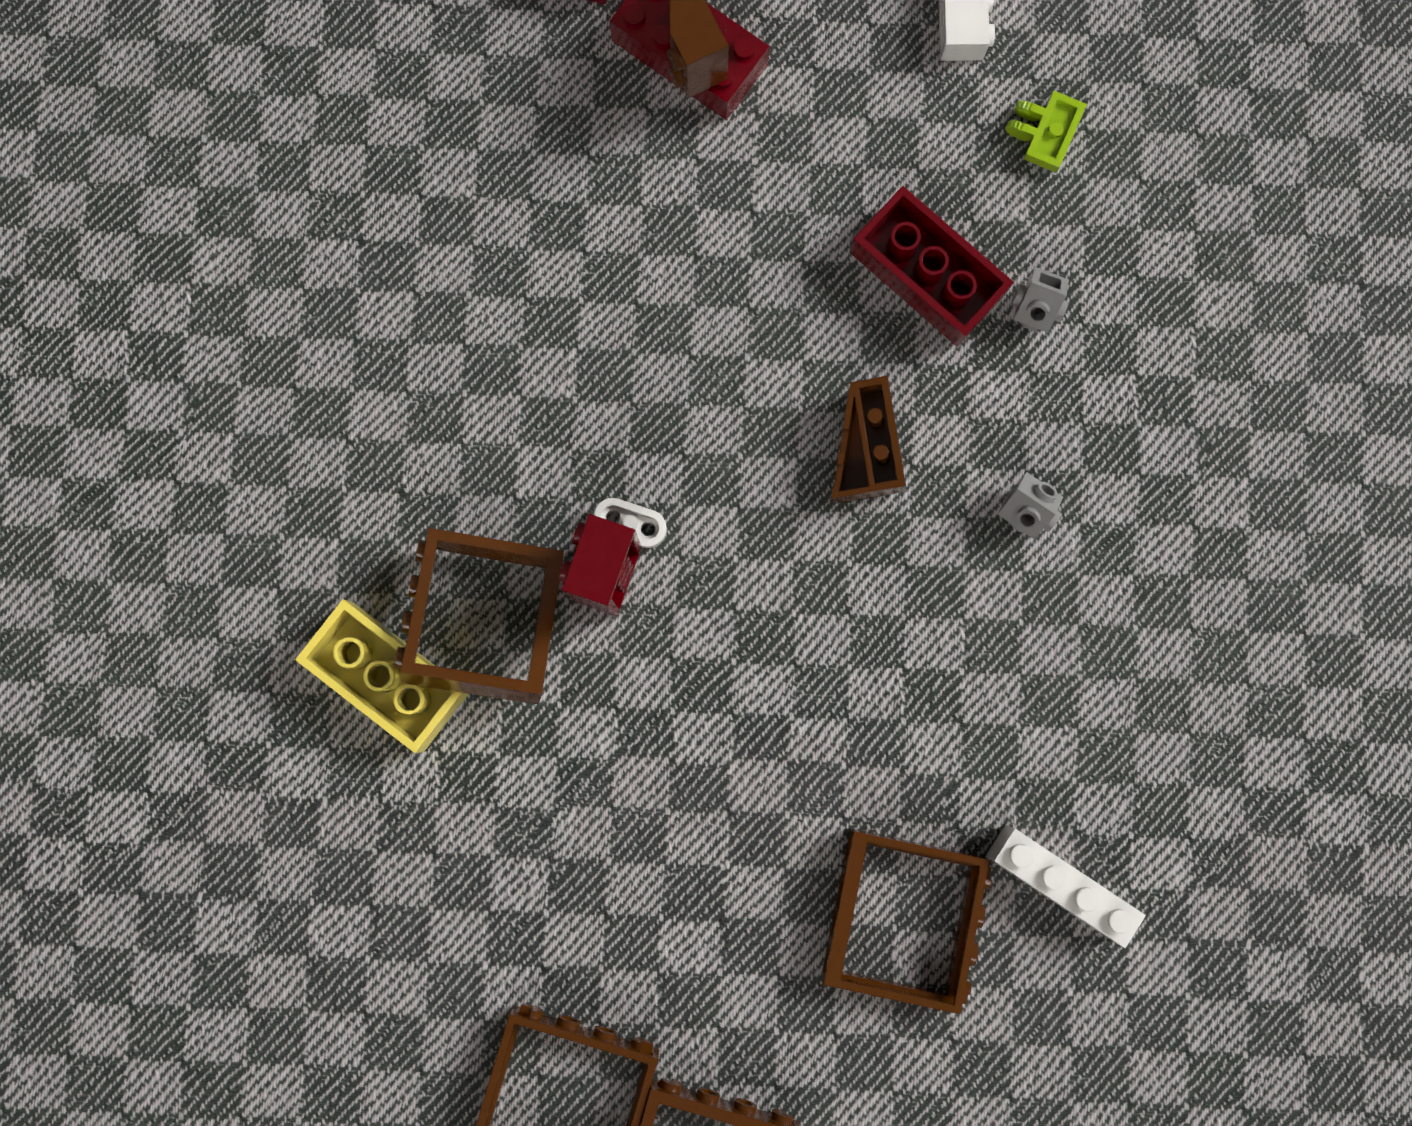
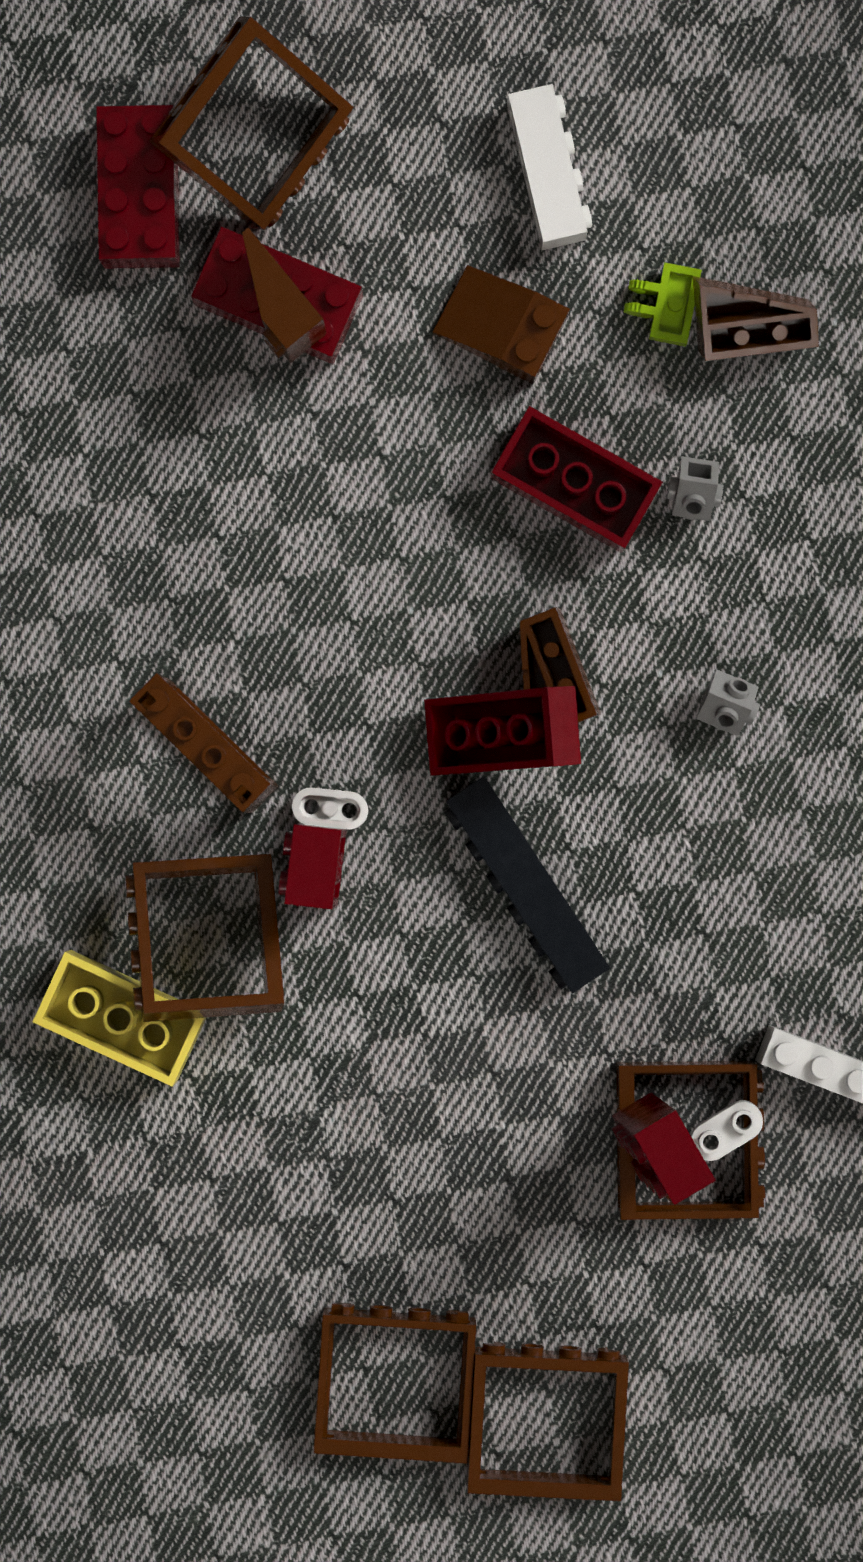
camera: 10 degrees left, 5 degrees up
(522, 426) = (203, 743): none -> reddish brown window
(802, 637) = (527, 885): none -> black brick
(814, 479) = (503, 731): none -> dark red brick
(885, 924) = (662, 1148): none -> dark red brick
(893, 114) = (502, 322): none -> reddish brown slope
(946, 915) = (724, 1127): none -> white plate
(1121, 155) = (750, 321): none -> reddish brown wedge

